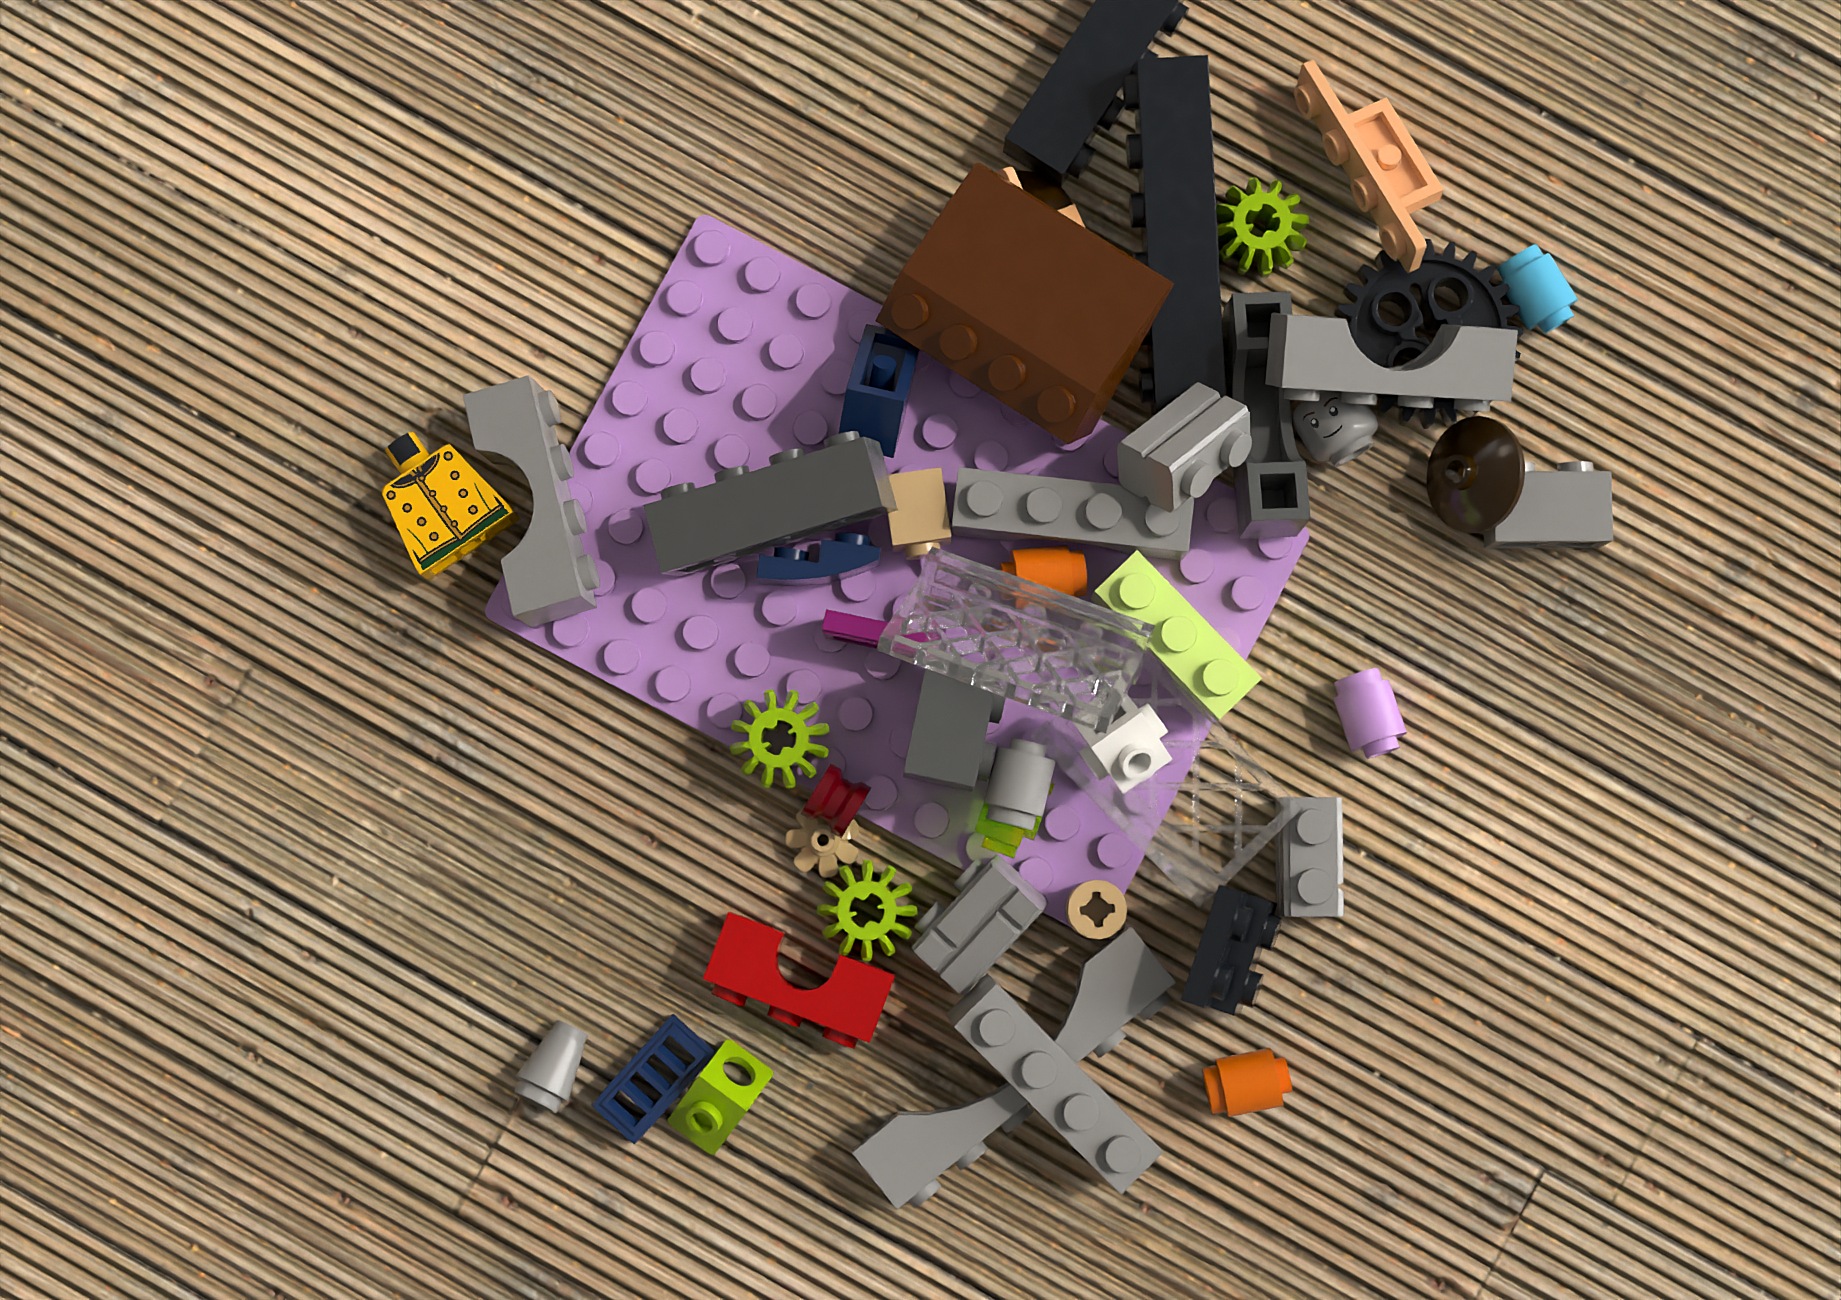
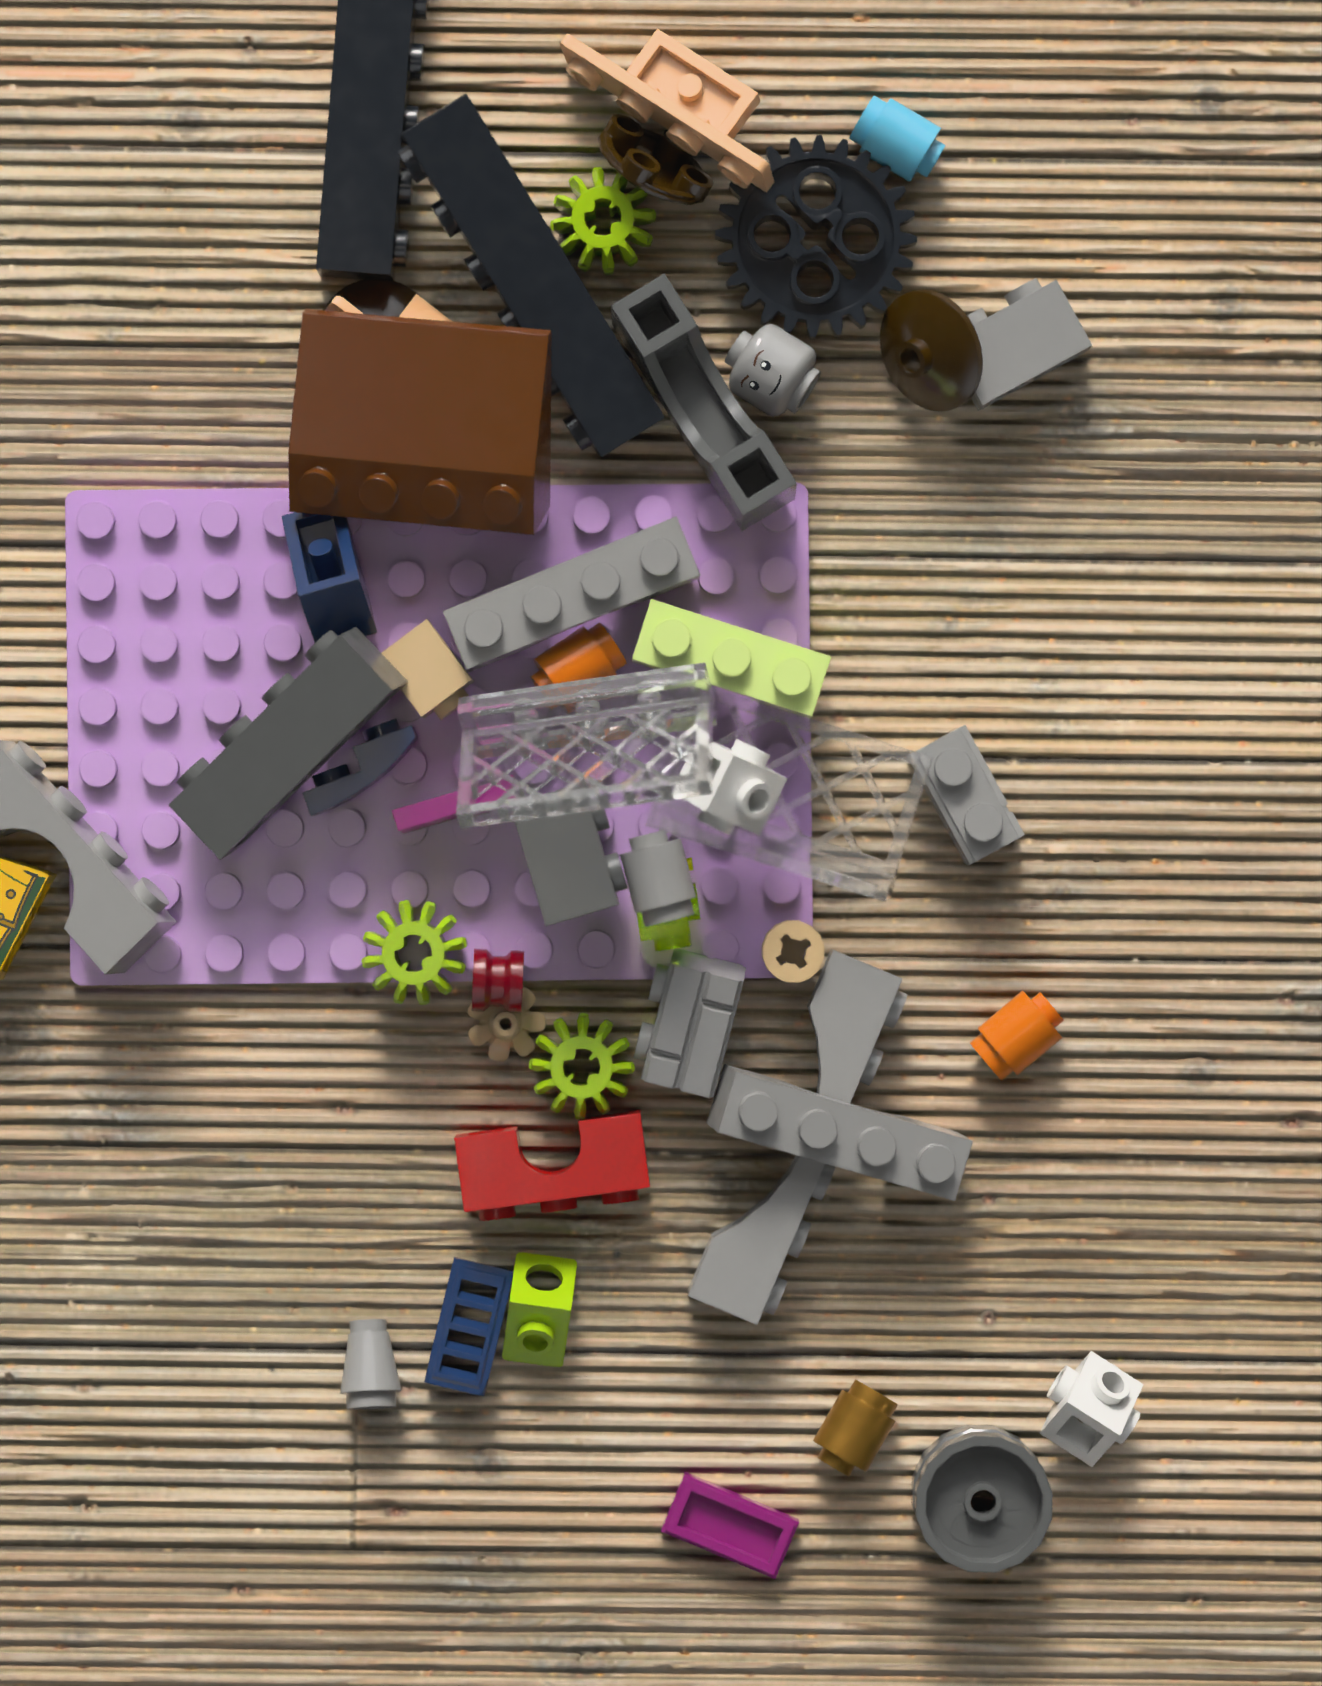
camera: 25 degrees left, 5 degrees up
(1184, 447) = (644, 480): light grey brick -> none
(1230, 950) = (937, 922): black plate -> none
(1327, 202) = (653, 162): none -> dark brown dish
(1369, 713) = (950, 628): lavender brick -> none
(1459, 364) = (860, 258): light grey arch -> none

